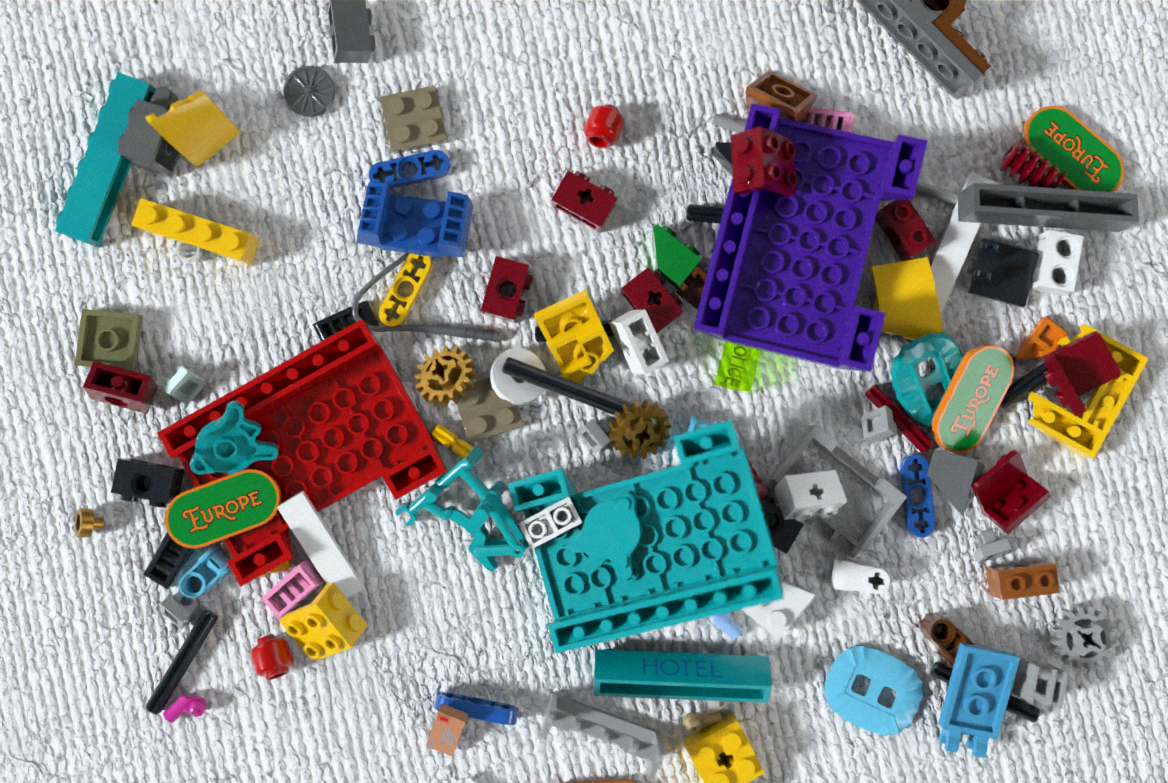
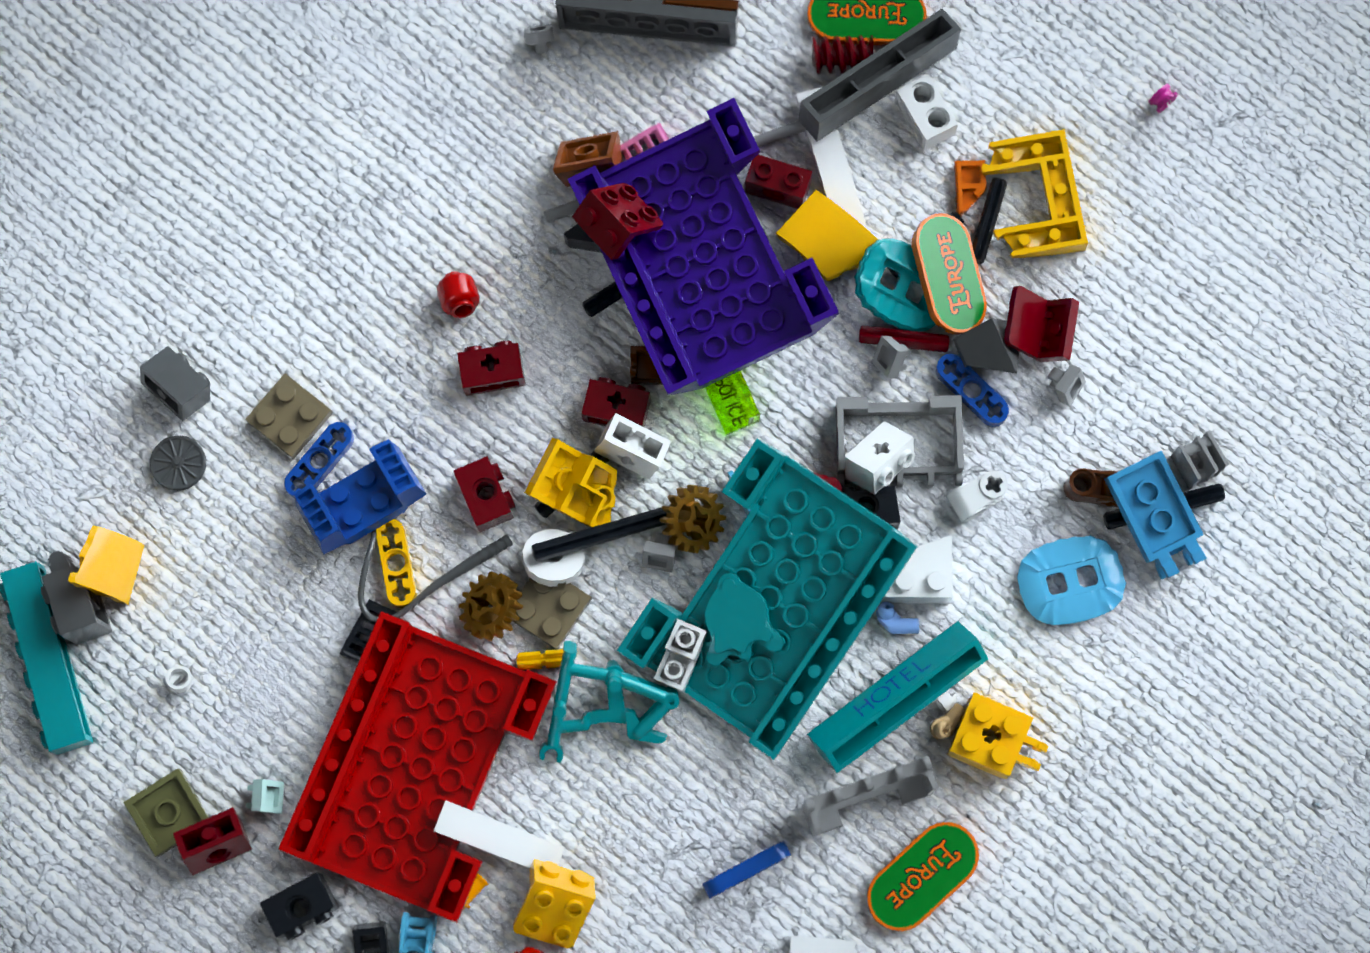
camera: 30 degrees left, 10 degrees down
(195, 231) = (195, 647): yellow arch -> none
(222, 508) = (387, 871): green tile -> none
(230, 444) = (349, 808): teal tile -> none
(308, 578) = (508, 871): bright pink slope -> none
(446, 729) = (735, 906): nougat tile -> none
(671, 257) = (603, 355): green slope -> none
(1003, 273) = (890, 154): black plate -> none
(1022, 579) = (1114, 388): dark orange brick -> none
(1079, 369) = (1014, 181): dark red bracket -> none
(1093, 629) = (1204, 408): light grey gear -> none

